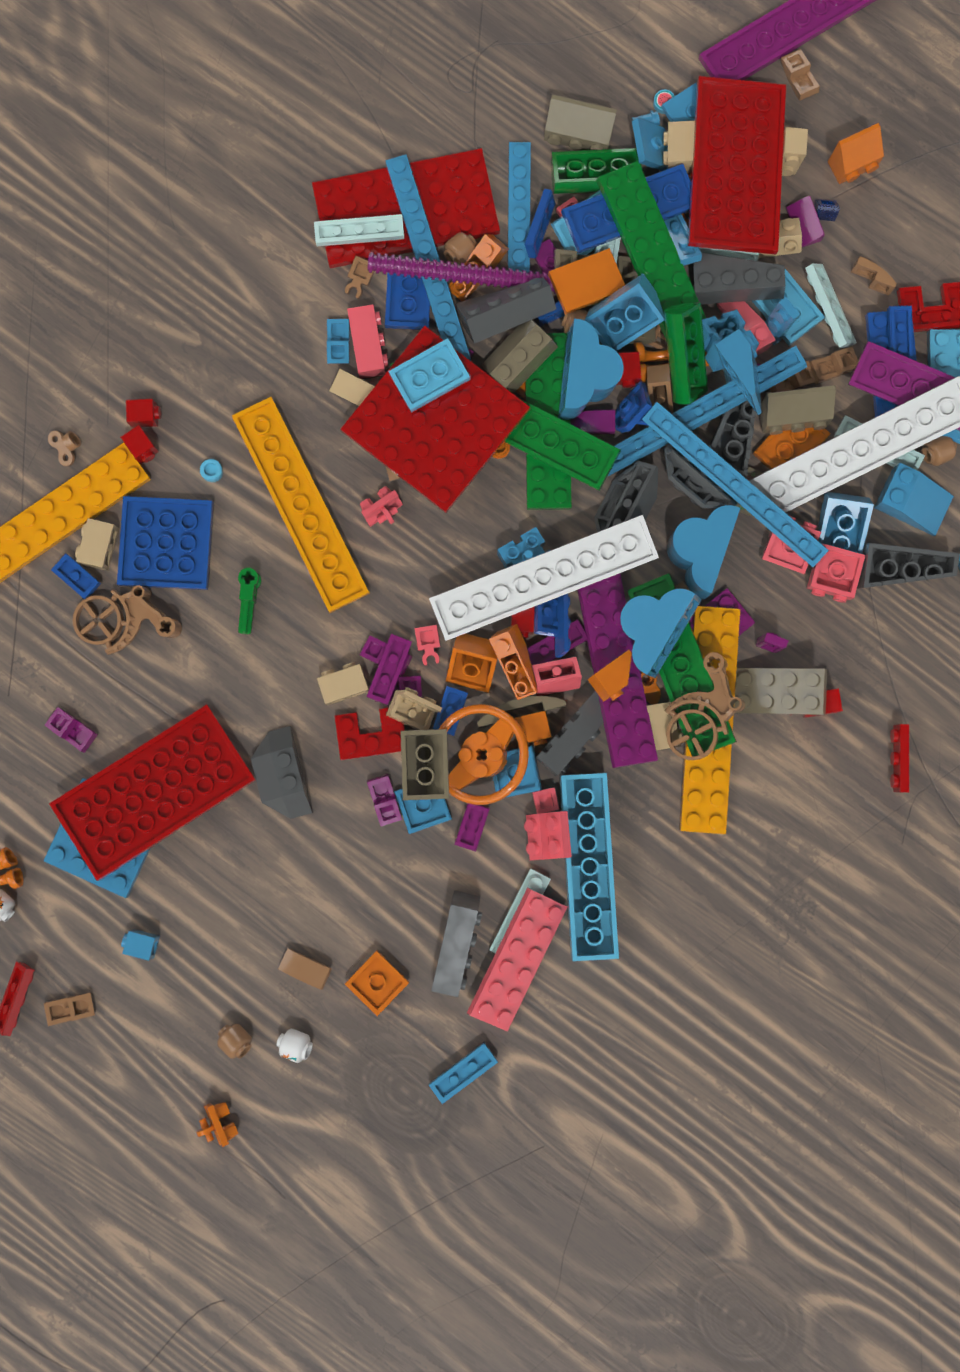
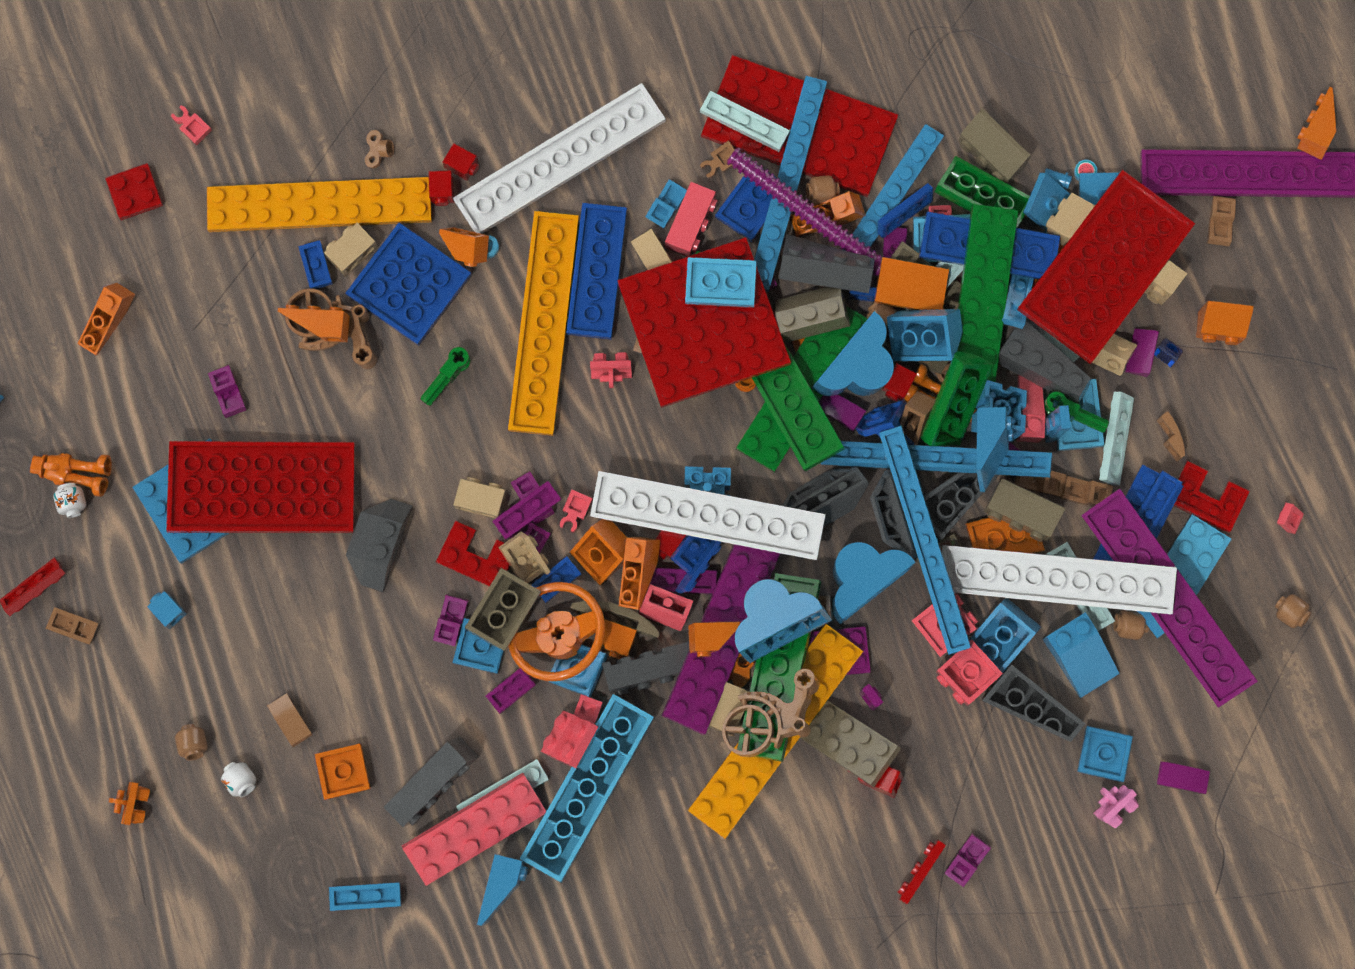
camera: 35 degrees right, 5 degrees down
(118, 620) = (328, 325): none -> orange slope
(193, 480) = (466, 245): none -> orange slope
(224, 360) = (559, 159): none -> white plate
(316, 433) = (596, 271): none -> blue plate
(571, 988) = (502, 882): none -> dark azure slope
(798, 302) = (1075, 412): none -> green connector
(929, 724) = (967, 860): none -> magenta slope

